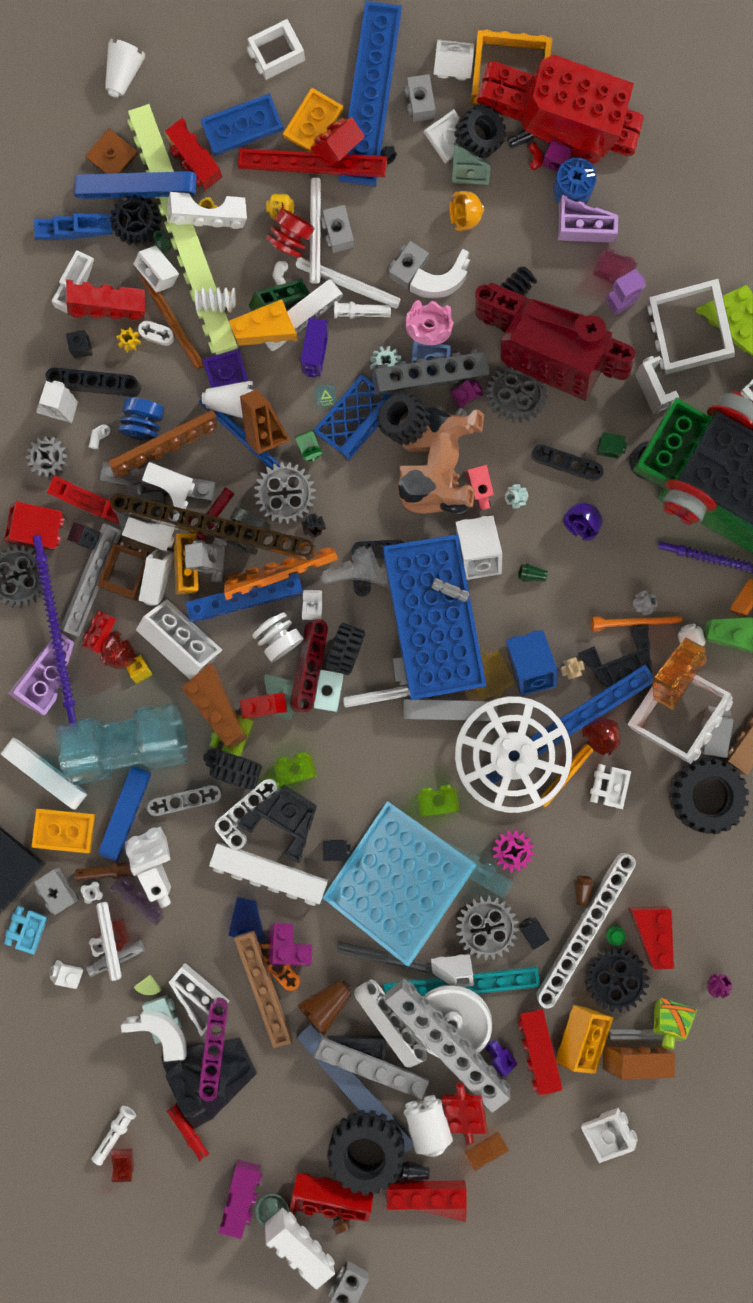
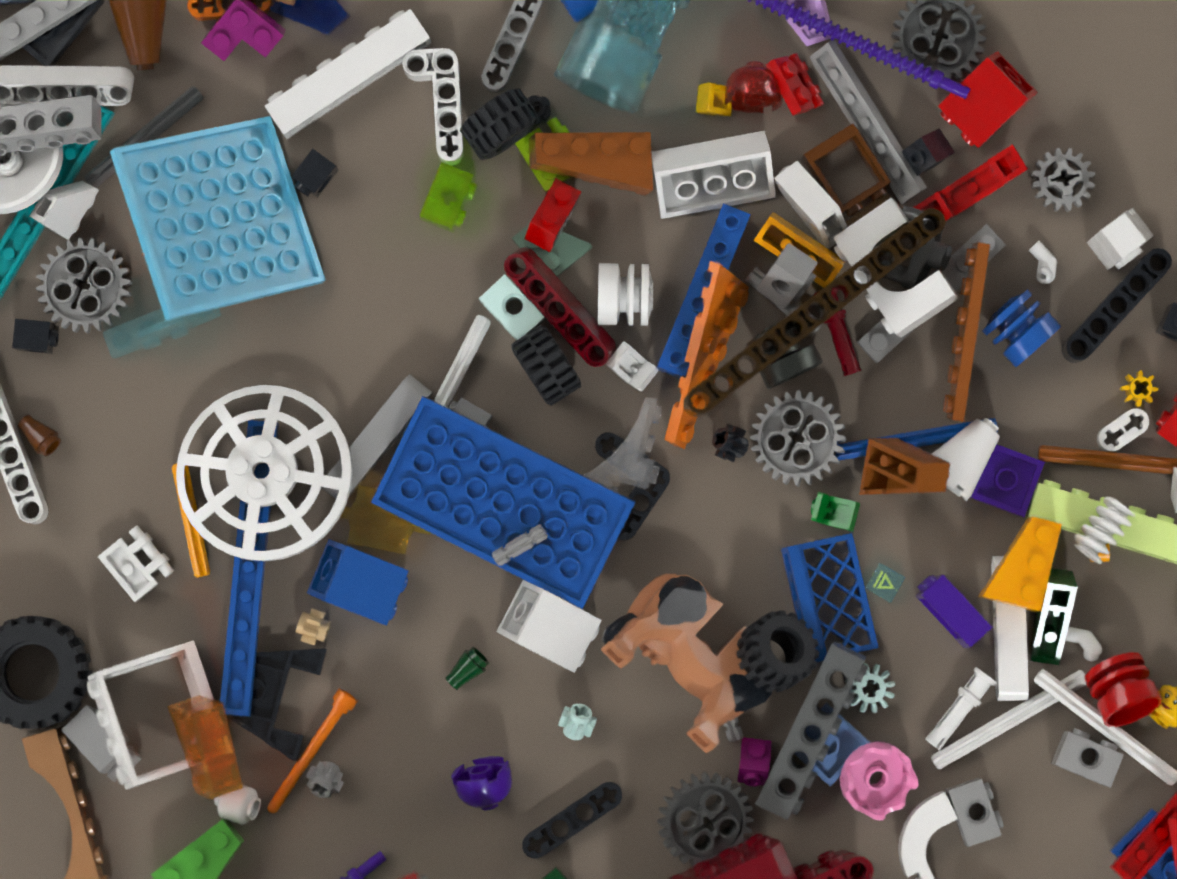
camera: 130 degrees right, 0 degrees up
(289, 812) = (402, 150): black wing -> none
(449, 804) = (278, 323): clear neon green brick -> none
(480, 477) = (634, 688): coral torso -> none
(502, 853) = (155, 374): dark pink gear -> none
(603, 735) = (203, 601): clear red cylinder -> none

